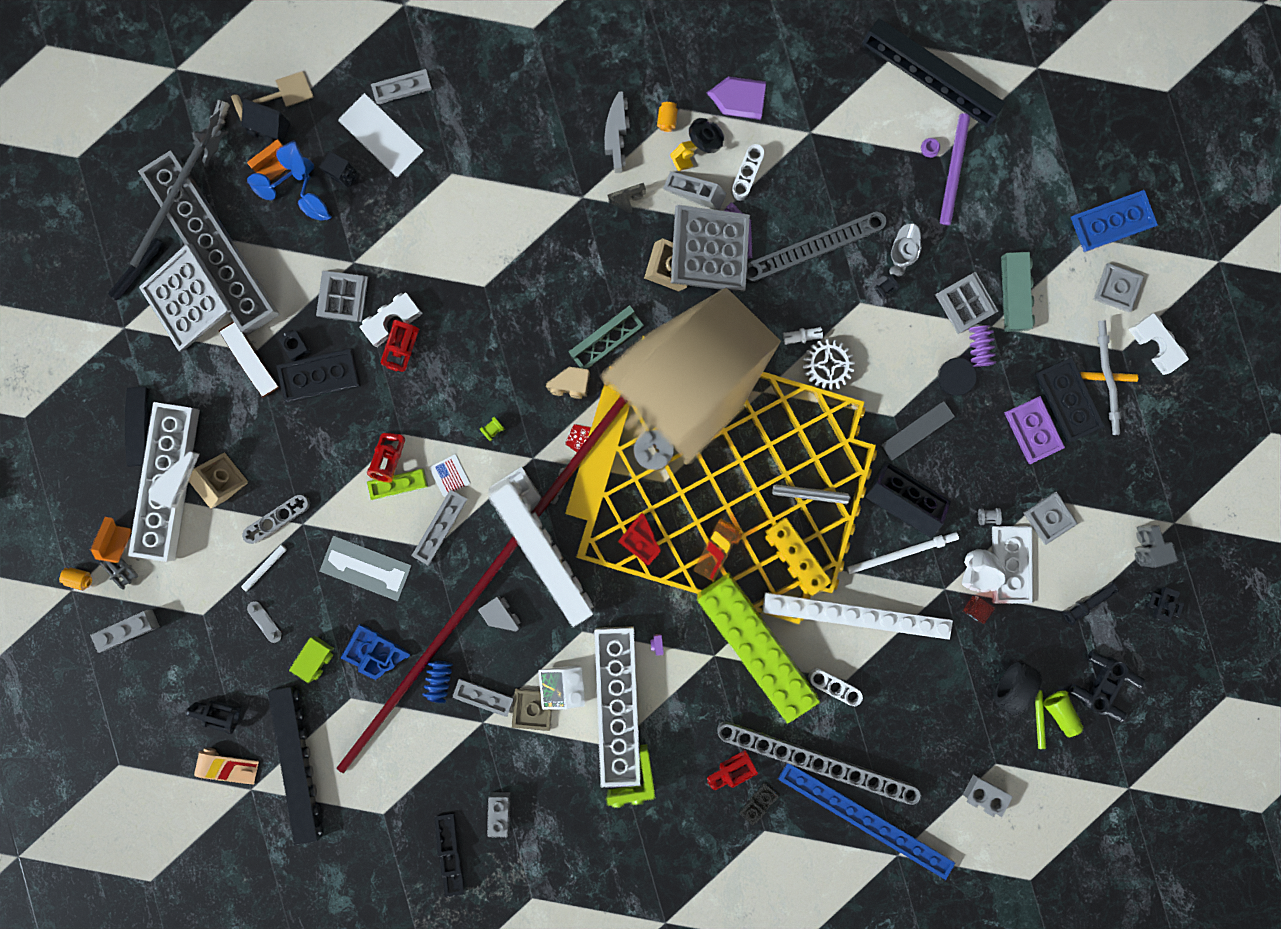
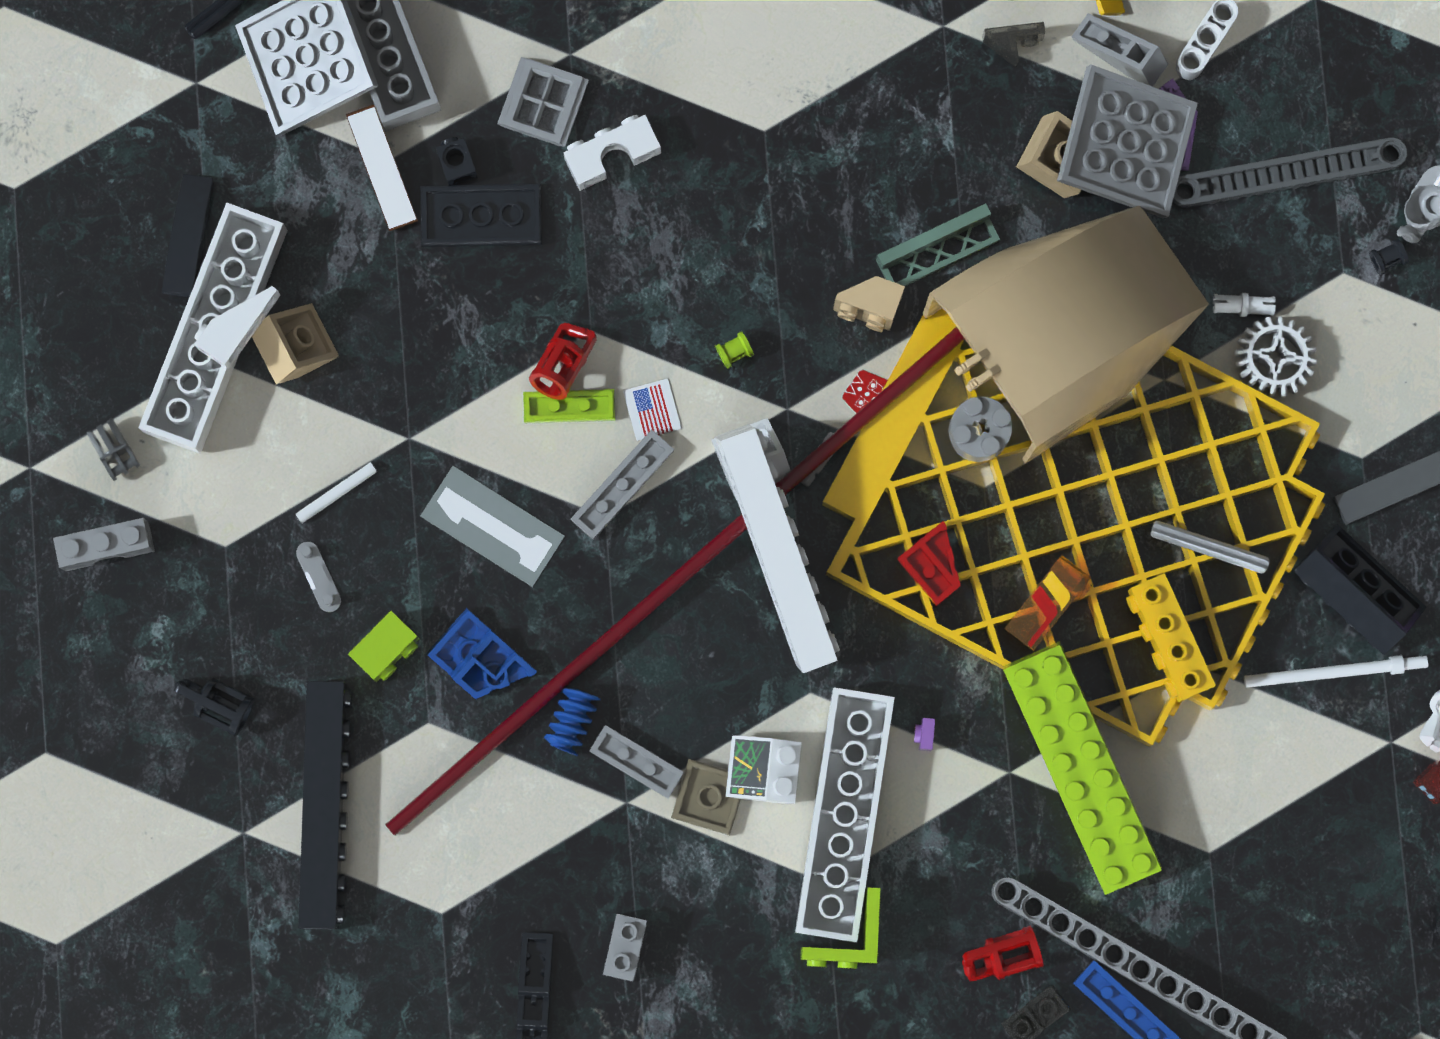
camera: 10 degrees right, 5 degrees down
(75, 578) = (44, 449): light orange brick -> none
(110, 541) = (112, 402): orange panel -> none
(224, 768) = (214, 788): light nougat door -> none
(277, 521) = (369, 416): light grey beam -> none
(393, 345) = (612, 199): red piece -> none
(498, 615) = (685, 638): light grey slope -> none
(843, 691) = (1204, 862): white beam -> none
(856, 616) = (1246, 751): white plate -> none

